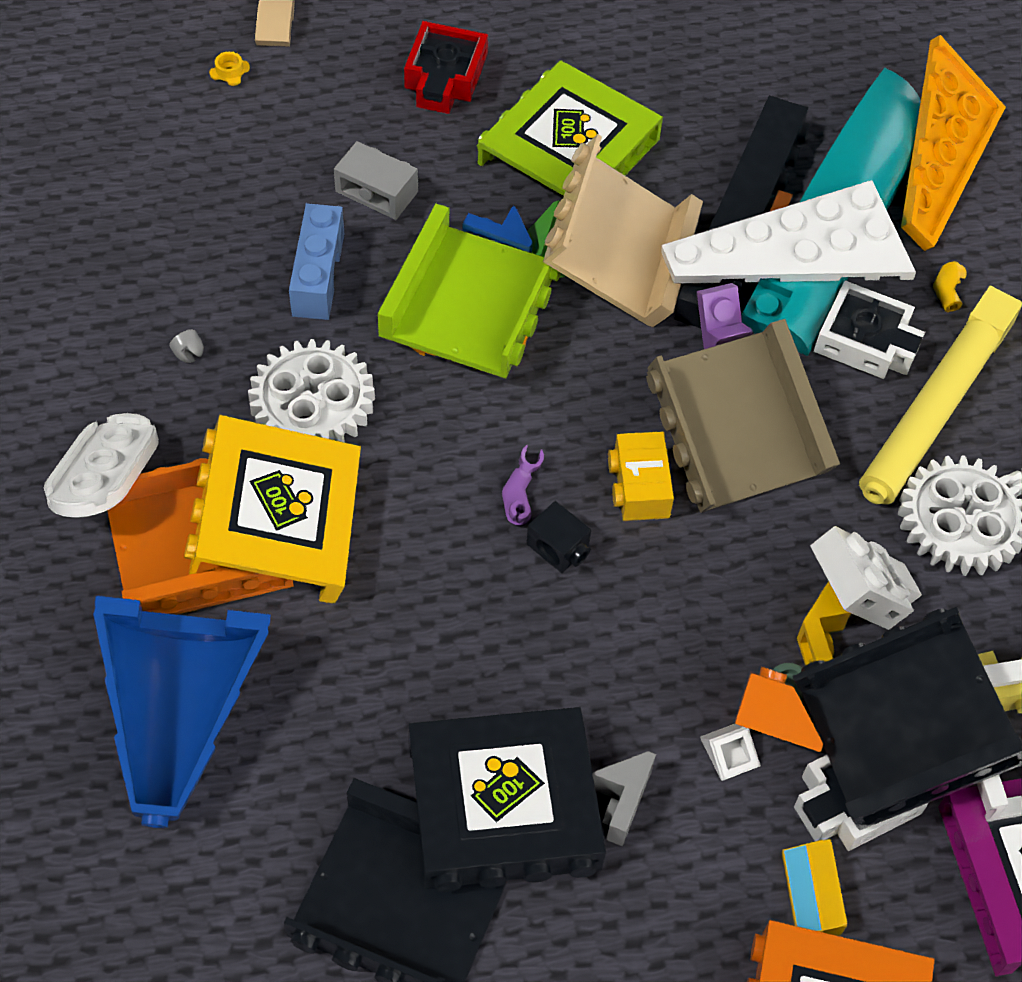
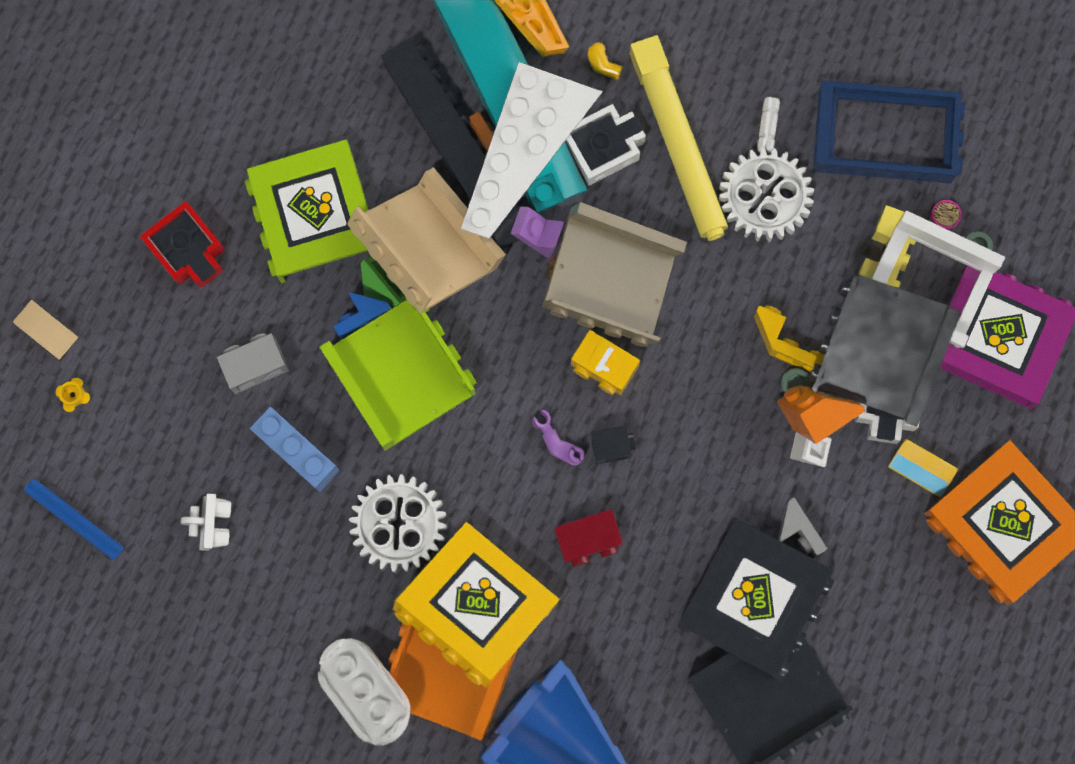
camera: 45 degrees left, 20 degrees up
(106, 138) = (73, 519): none -> blue axle
(183, 231) = (211, 509): none -> white hips
(186, 342) = (301, 577): light grey hinge -> none
(438, 579) = (588, 538): none -> dark red brick
(866, 577) = (772, 291): white piece -> none

